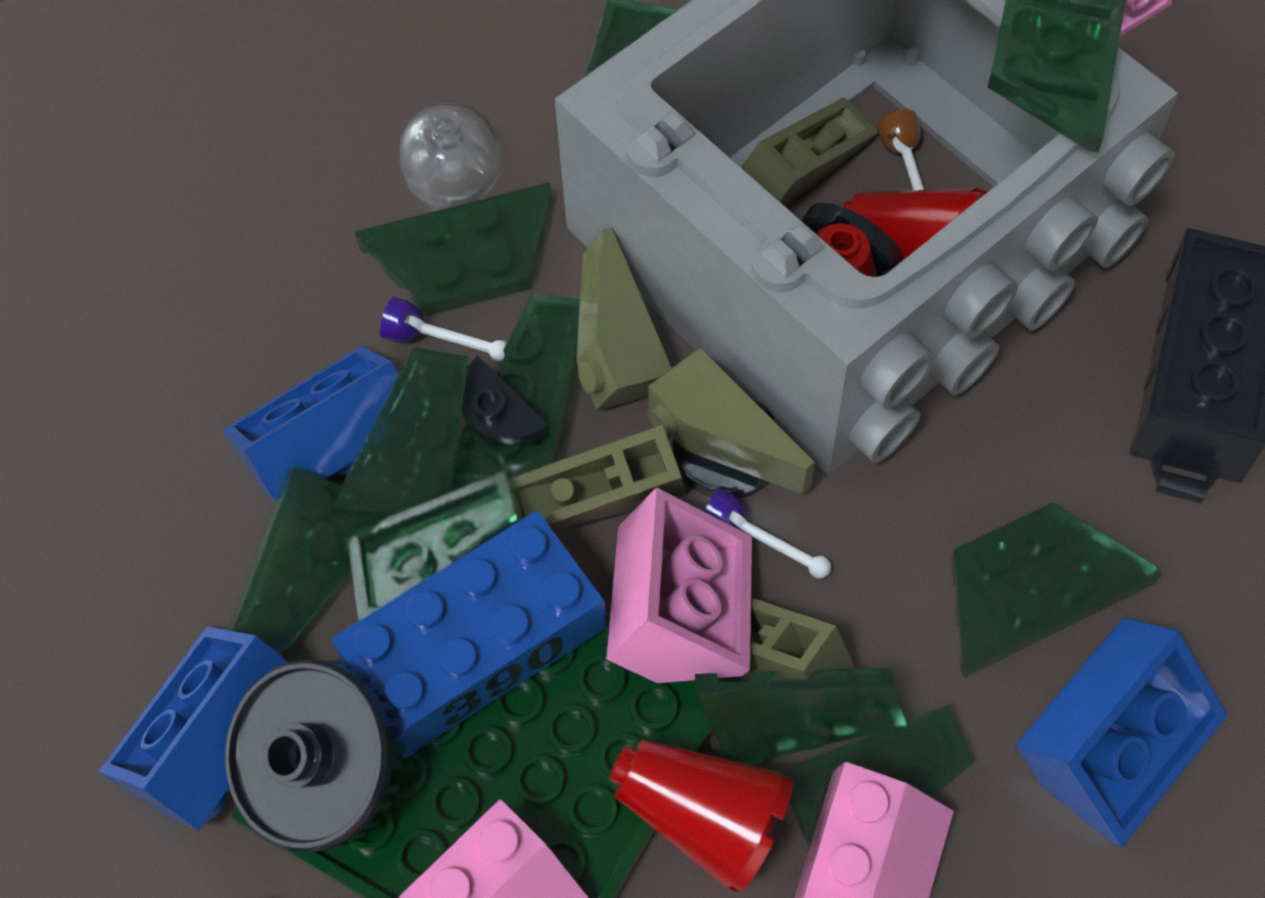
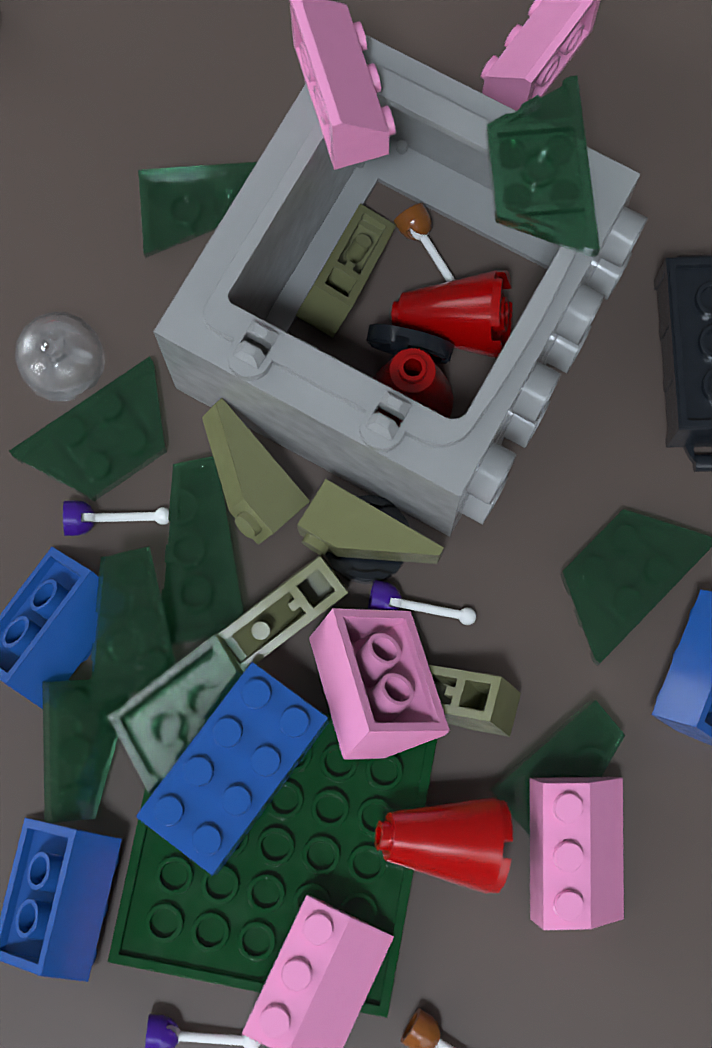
camera: 20 degrees left, 15 degrees up
(311, 755) = (155, 907): wheel -> none
(496, 411) = (183, 576): black plate -> none
(790, 716) = (481, 753): clear green wing -> none

